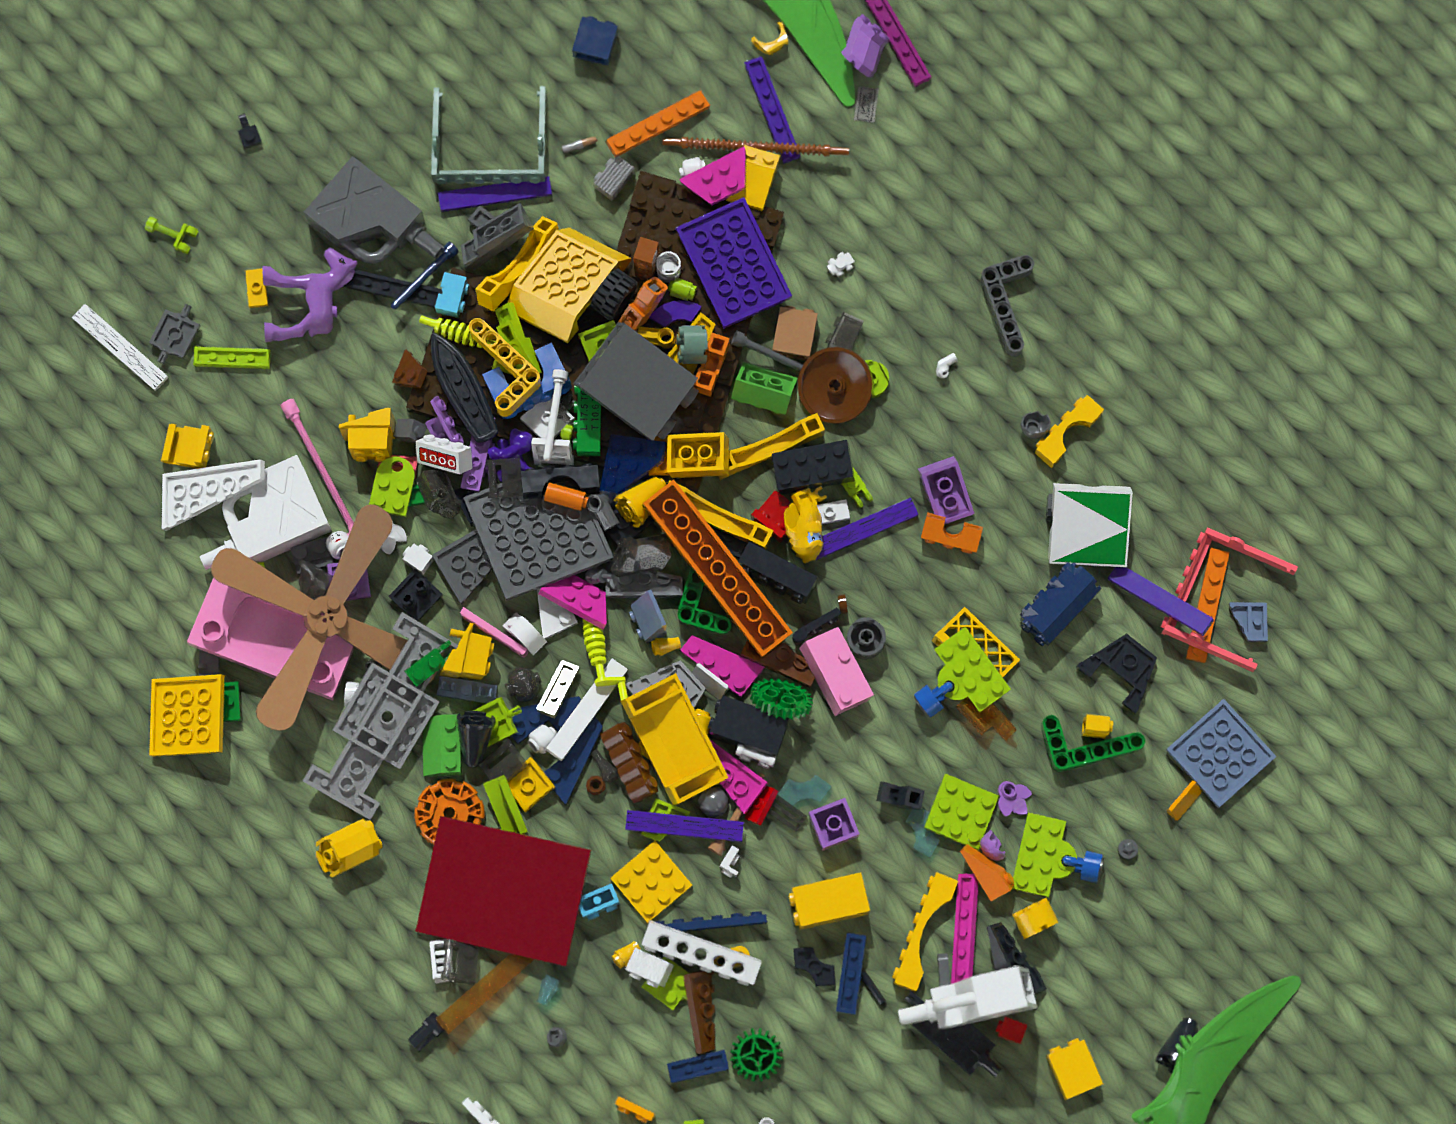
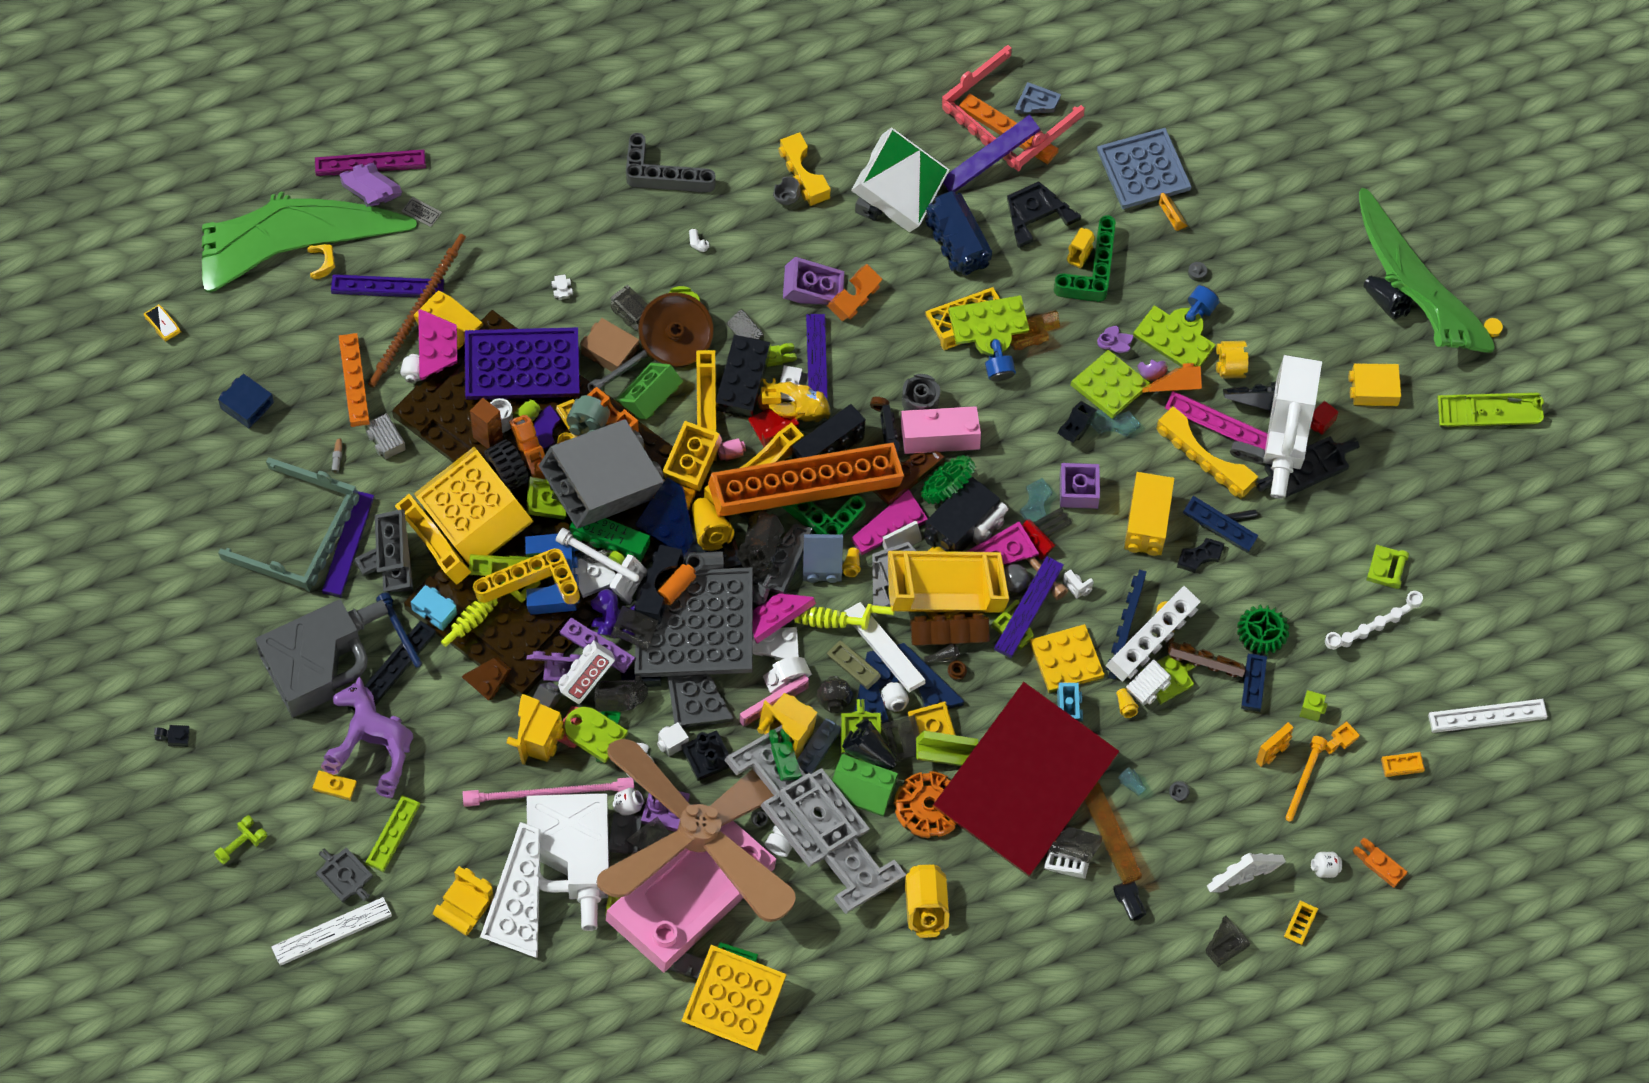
camera: 70 degrees left, 15 degrees down
(462, 389) = (530, 632): black piece -> none
(734, 488) = (731, 449): none -> bright pink brick
(869, 448) = (743, 325): none -> clear smoke slope

